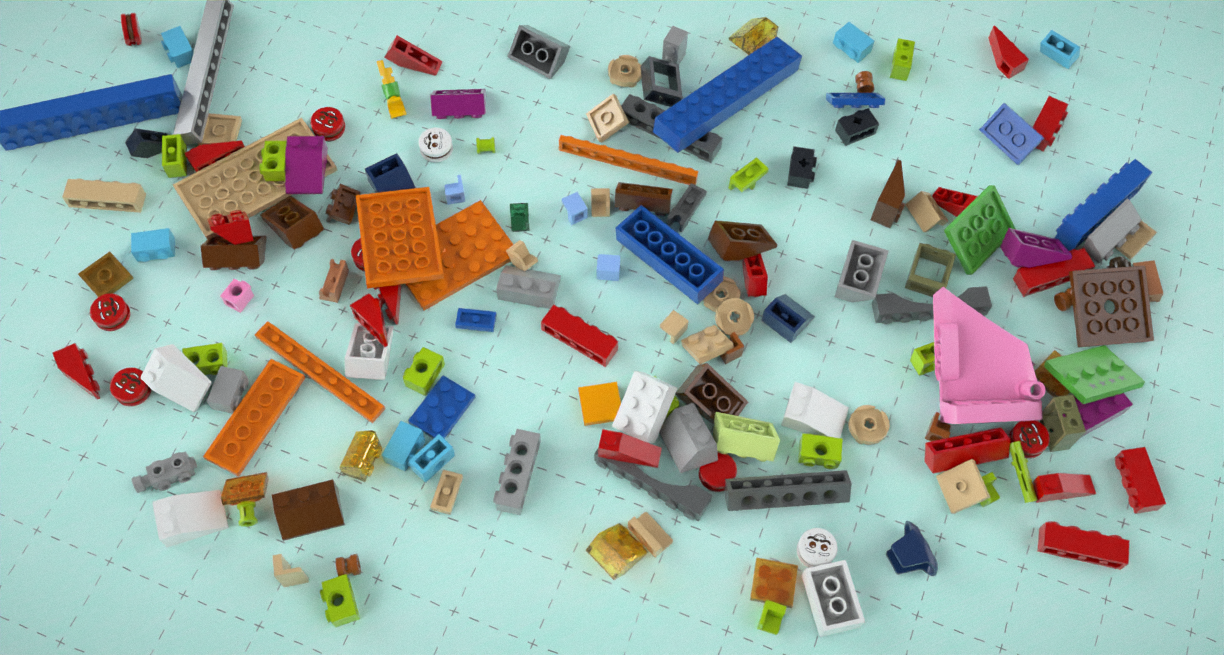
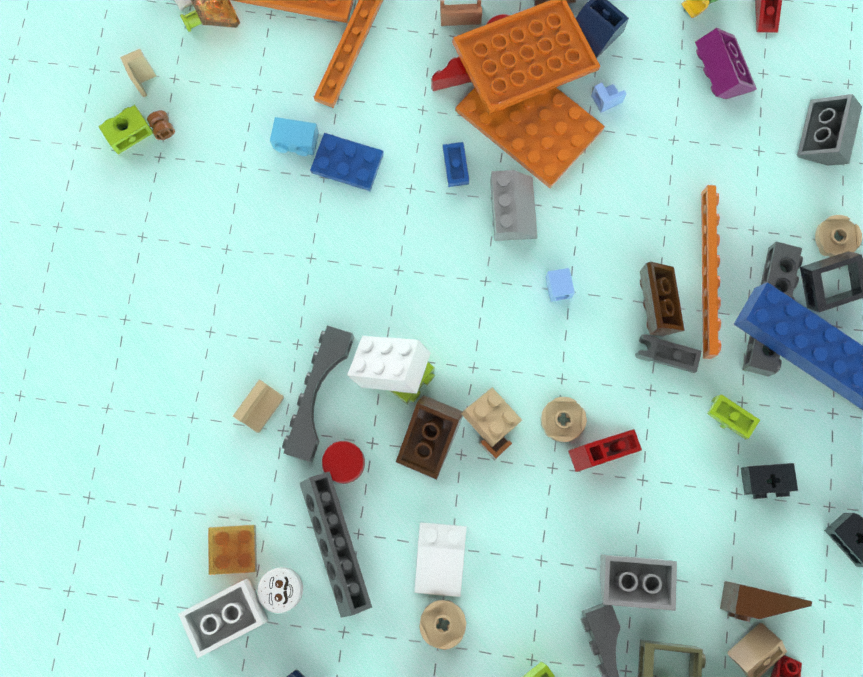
camera: 80 degrees right, 15 degrees up
(308, 509) = (208, 71): reddish brown slope -> none
(361, 455) = (272, 100): clear yellow slope -> none
(366, 355) = (390, 70): white slope -> none
(369, 314) = (424, 60): red slope -> none
(423, 381) = (390, 138): lime brick -> none
(432, 458) = (284, 166): medium azure brick -> none
(435, 144) = (660, 58): white head -> none
(446, 492) = (256, 192): tan plate -> none
(485, 145) = (677, 110): lime bush -> none
(514, 502) = (261, 247): light grey brick -> none
(519, 217) = (595, 174): clear green panel -> none
(520, 256) = (544, 188): tan panel -> none
(576, 208) = (625, 228): light blue panel -> none
(579, 335) = (465, 276): red brick -> none
(599, 403) = (394, 317): light orange tile -> none
(600, 202) = (640, 255): tan panel -> none
(607, 118) = (760, 232): tan plate -> none
(616, 550) = (230, 376): clear yellow slope -> none
(628, 449) = (335, 359): slope -> none
(669, 254) = (593, 347): blue brick -> none
(674, 325) = (504, 374): tan panel -> none
(688, 439) = (368, 421): light grey slope -> none
(739, 240) = (639, 426): reddish brown slope -> none
(739, 307) = (548, 440): tan plate -> none
(745, 437) = (388, 483): yellowish green slope -> none
(771, 617) = (194, 554): lime panel -> none
(786, 317) = (555, 503): dark blue slope -> none
(829, 445) = (394, 587): lime brick -> none

